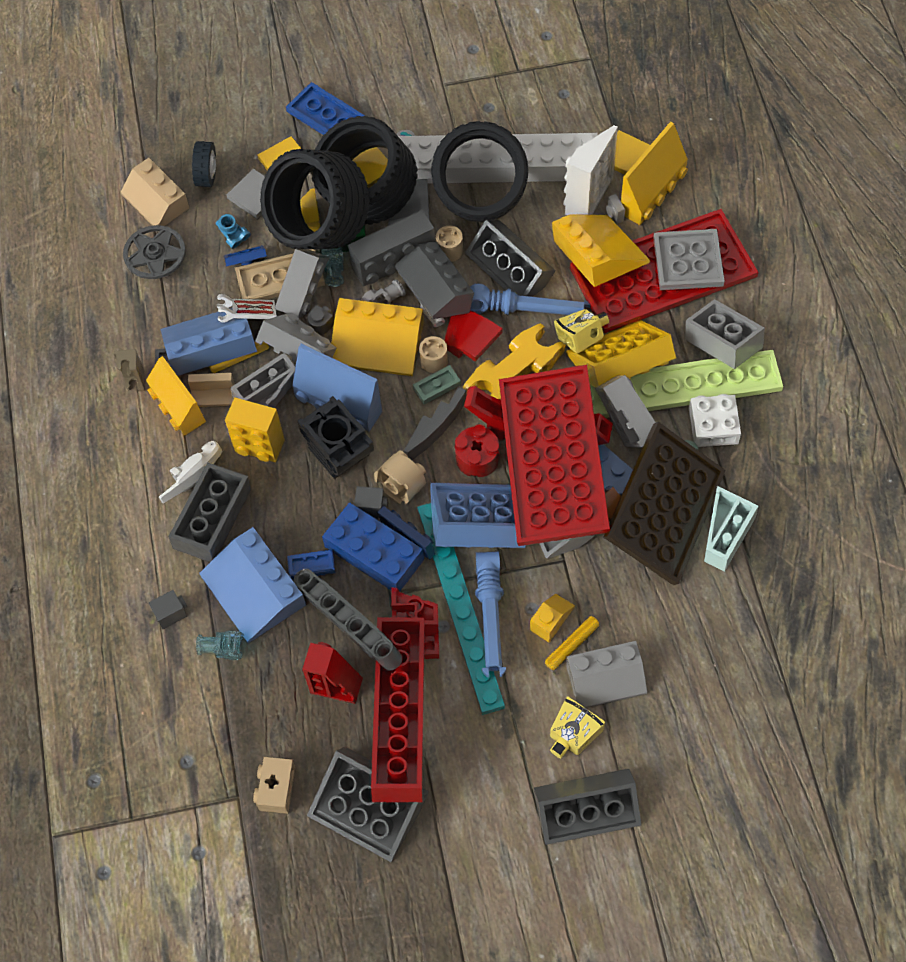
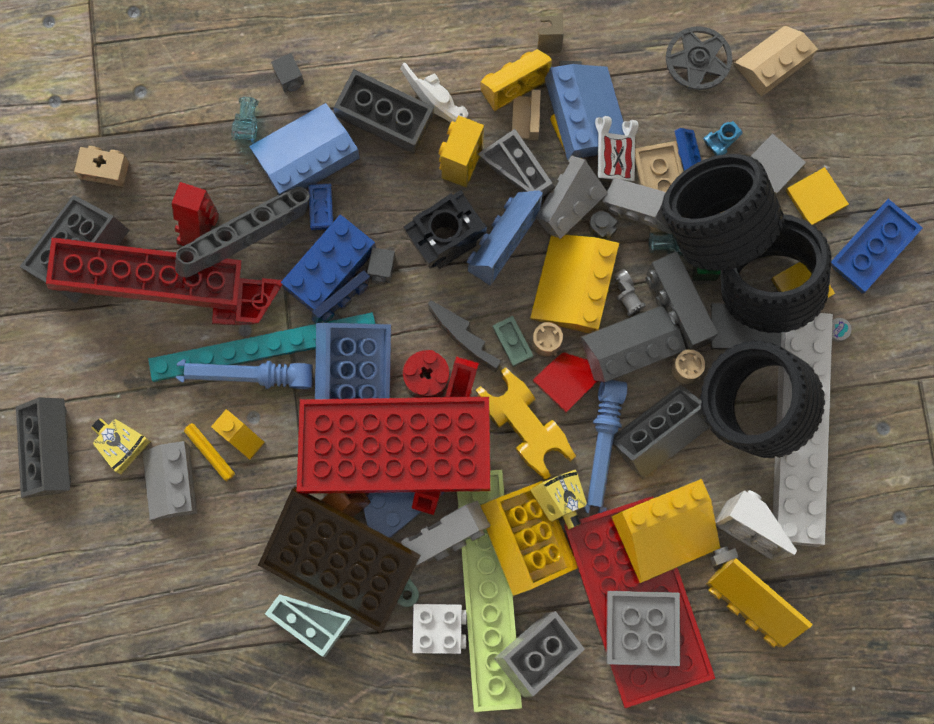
camera: 90 degrees right, 15 degrees up
(204, 164) = (807, 107): black wheel -> none
(400, 478) = (400, 294): tan brick -> none
(627, 151) = (804, 579): yellow tile -> none

